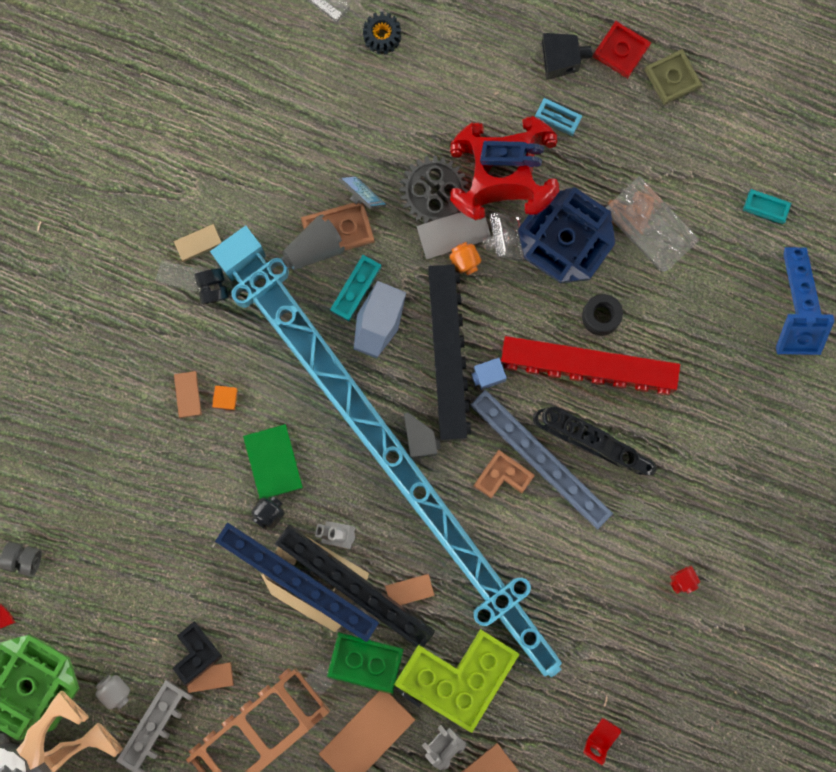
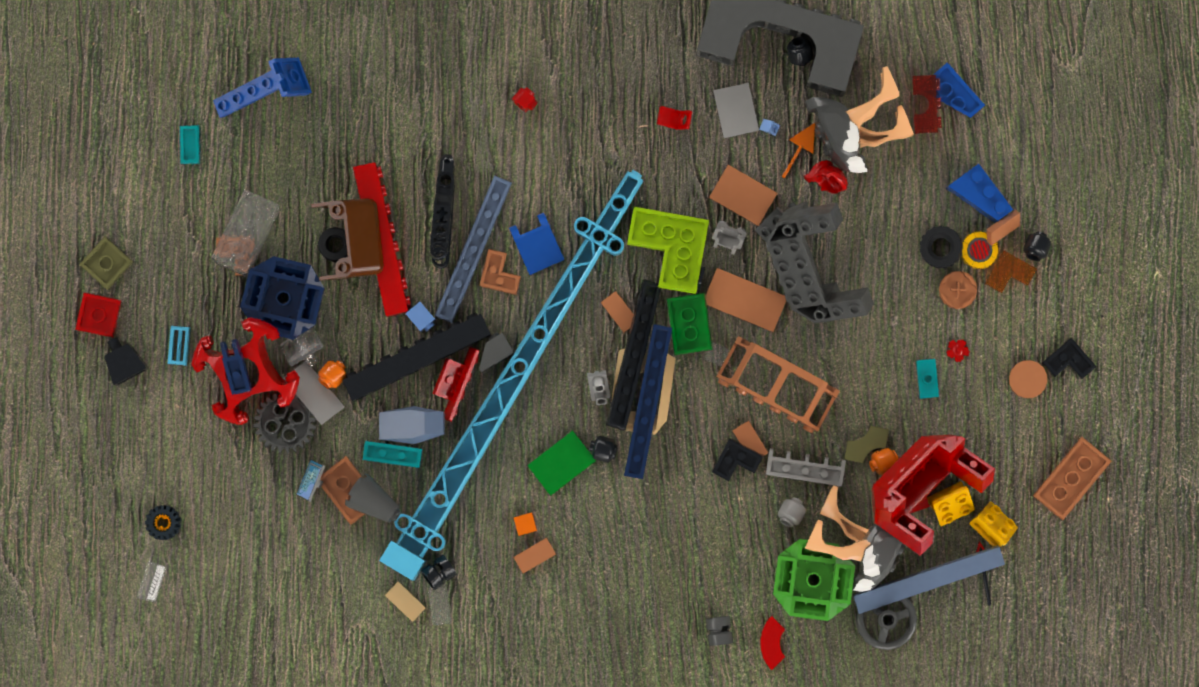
camera: 105 degrees left, 5 degrees up
(406, 381) = (453, 381): none -> red bracket
(516, 529) = (537, 246): none -> blue flag
(601, 341) = (361, 236): none -> reddish brown windscreen

